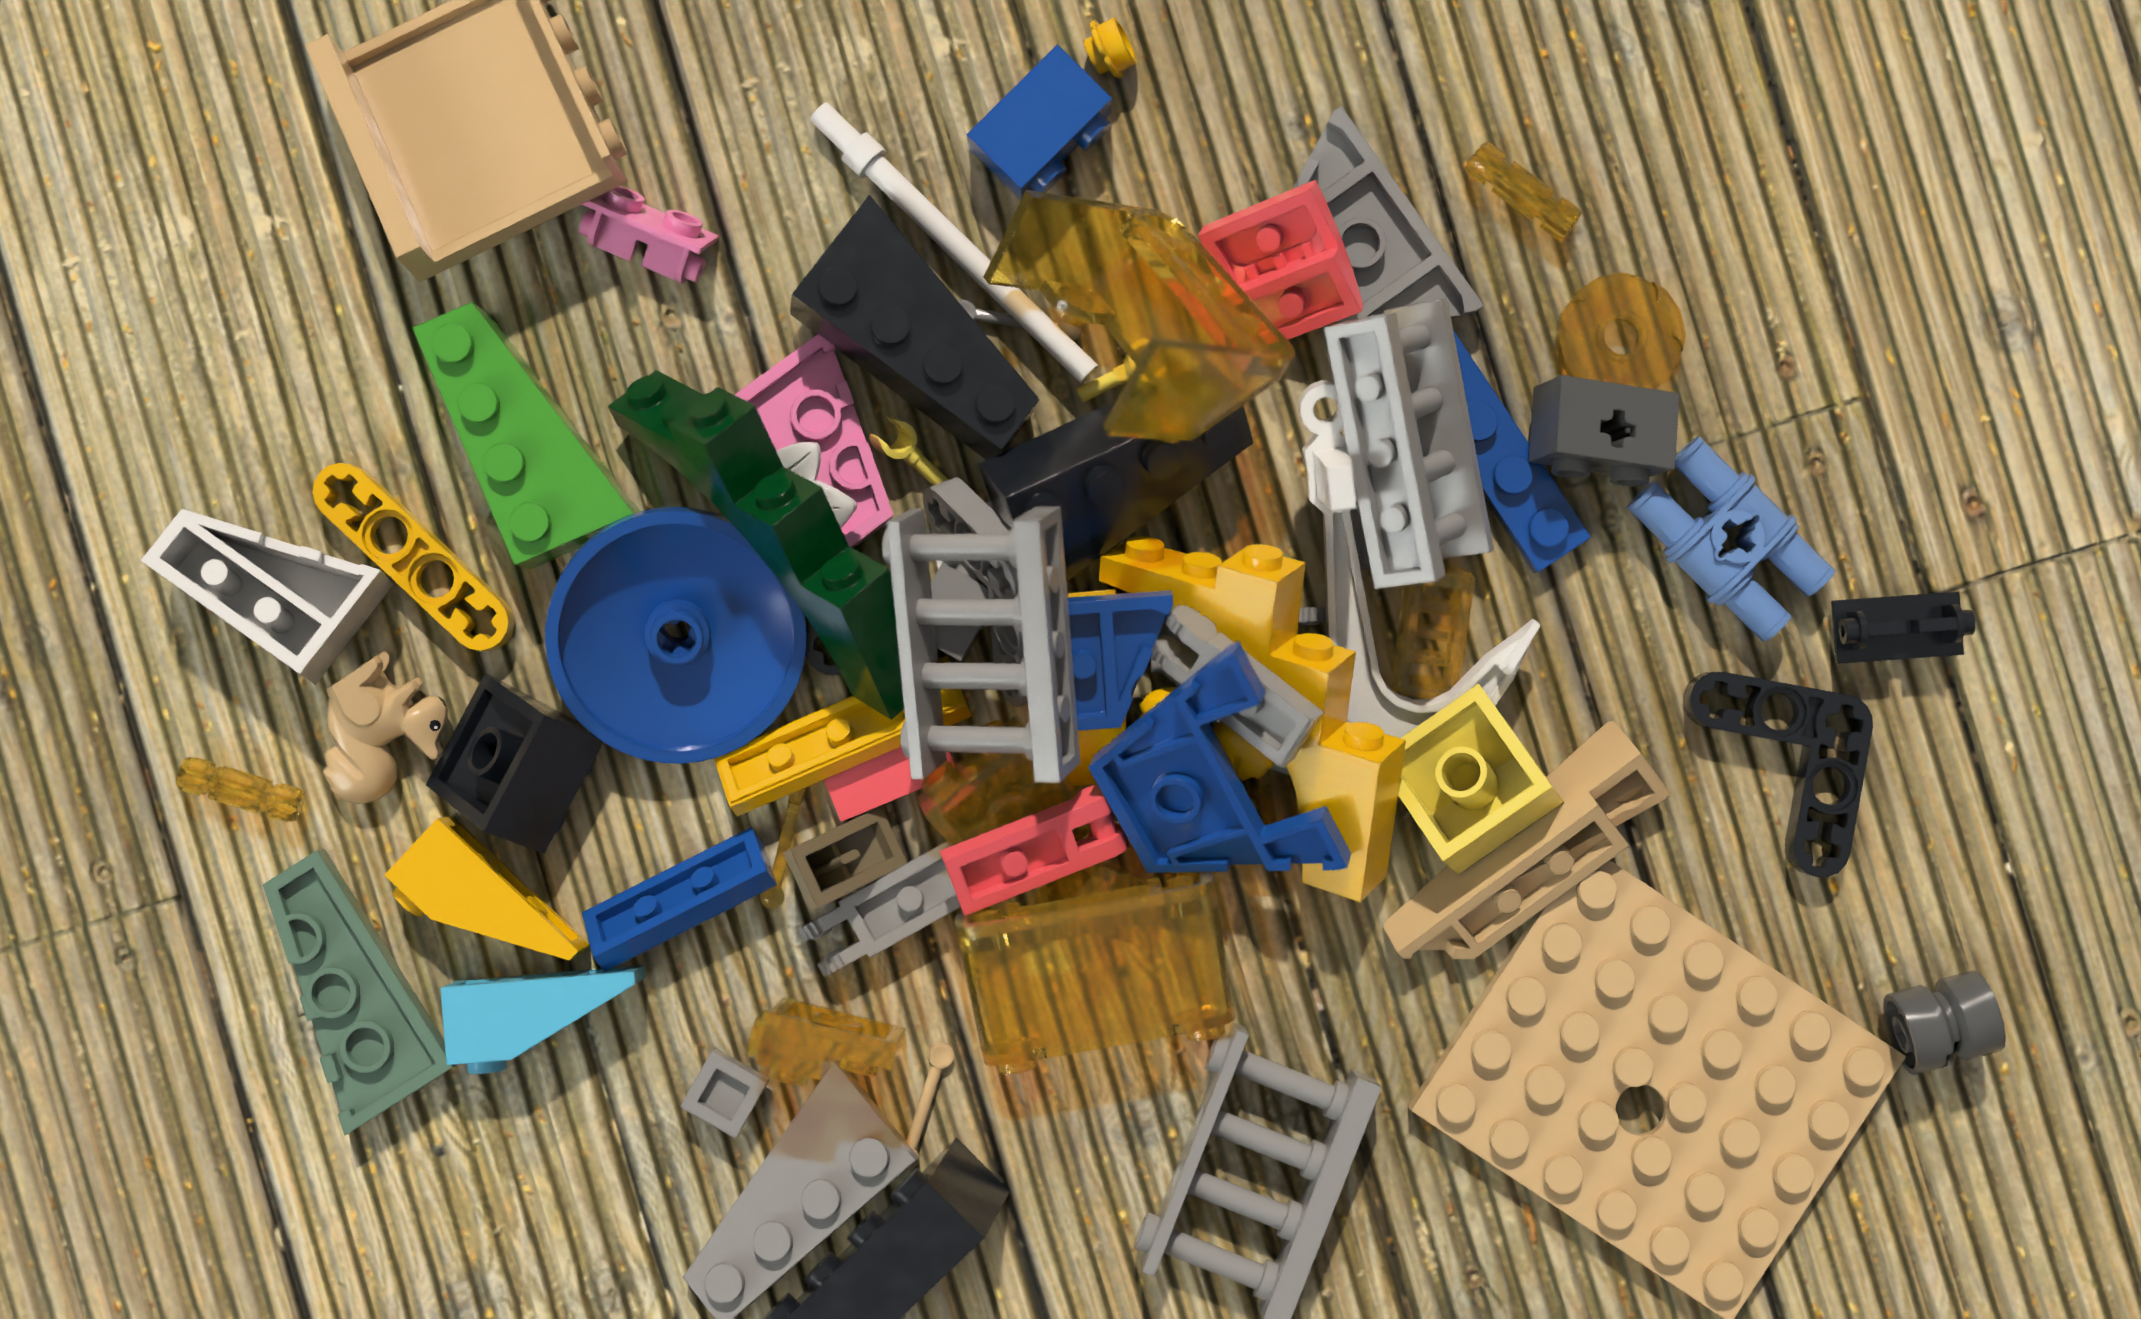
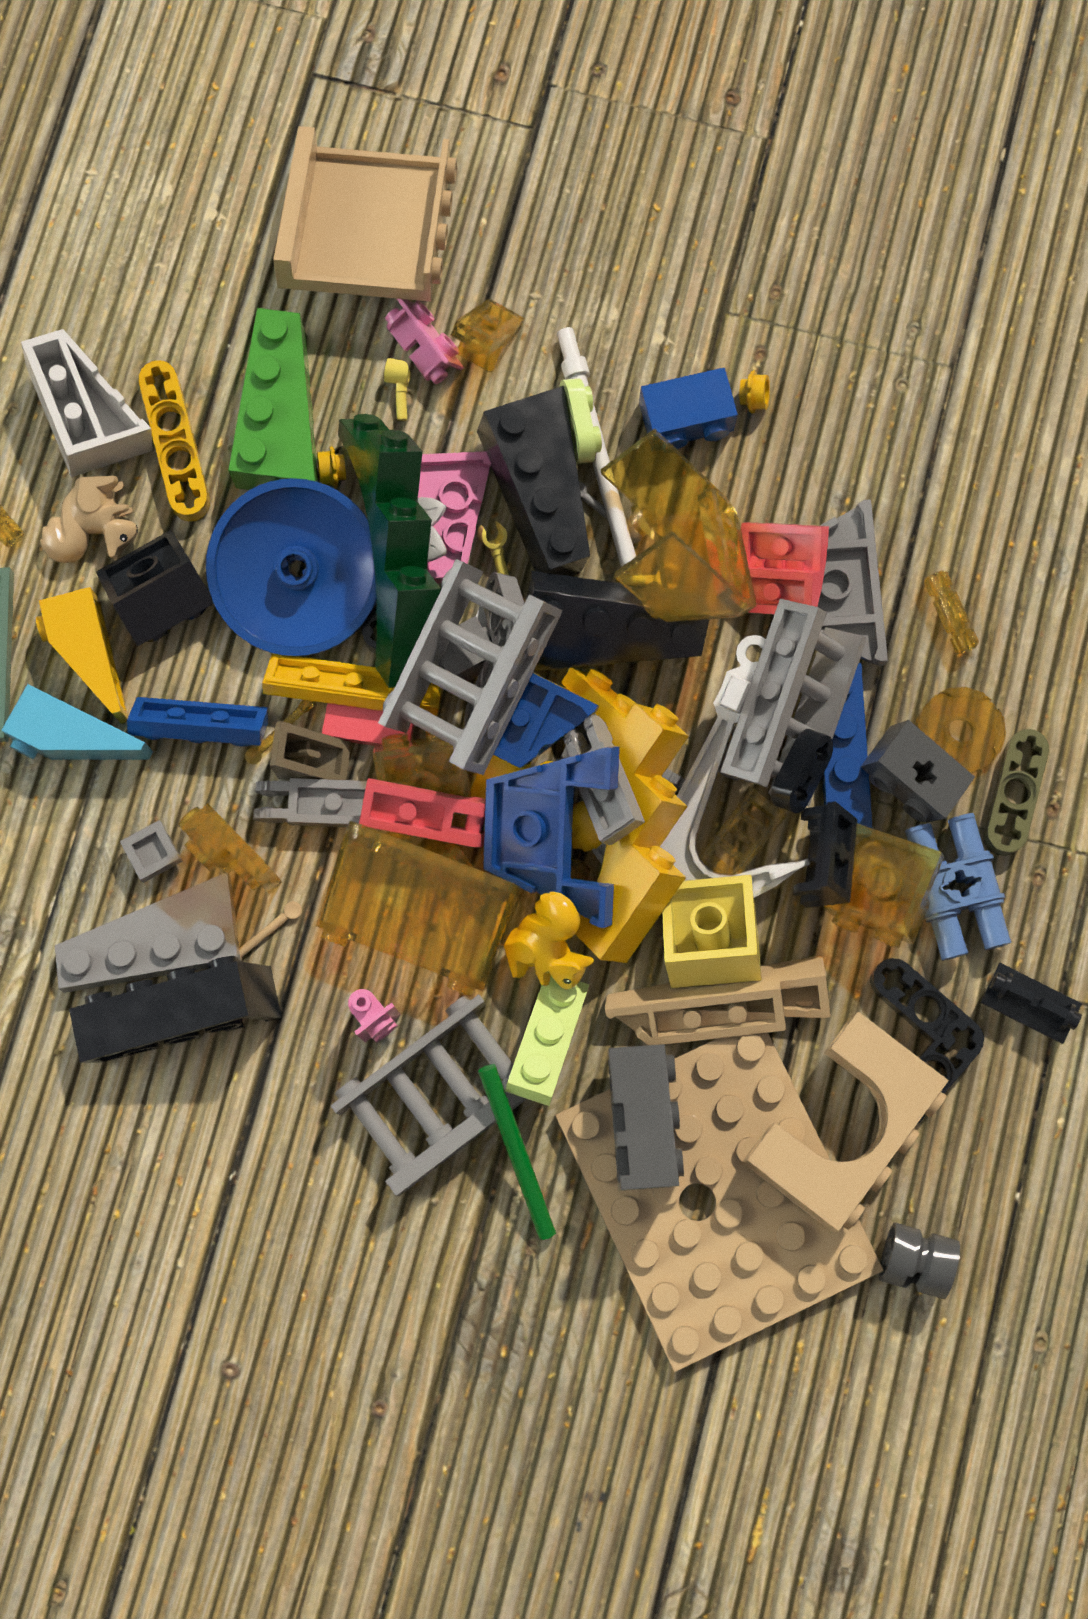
camera: 30 degrees right, 10 degrees down
(636, 474) = (331, 467): none -> yellow plate
(644, 296) = (398, 373): none -> light yellow hand
(722, 173) = (486, 333): none -> clear yellow slope
(935, 243) = (585, 436): none -> yellowish green plate
(1125, 1134) = (375, 1019): none -> bright pink hinge
(1278, 920) = (542, 943): none -> yellow animal
(1351, 1031) = (546, 1042): none -> yellowish green plate
(1396, 1187) = (517, 1151): none -> green bar
(1466, 517) = (802, 771): none -> black beam
(1532, 1066) = (644, 1117): none -> dark grey wedge
(1561, 601) = (829, 855): none -> black hinge
(1645, 597) = (888, 887): none -> clear yellow plate
(1705, 333) = (1013, 758): none -> olive beam
(1805, 1001) = (903, 1092): none -> tan arch

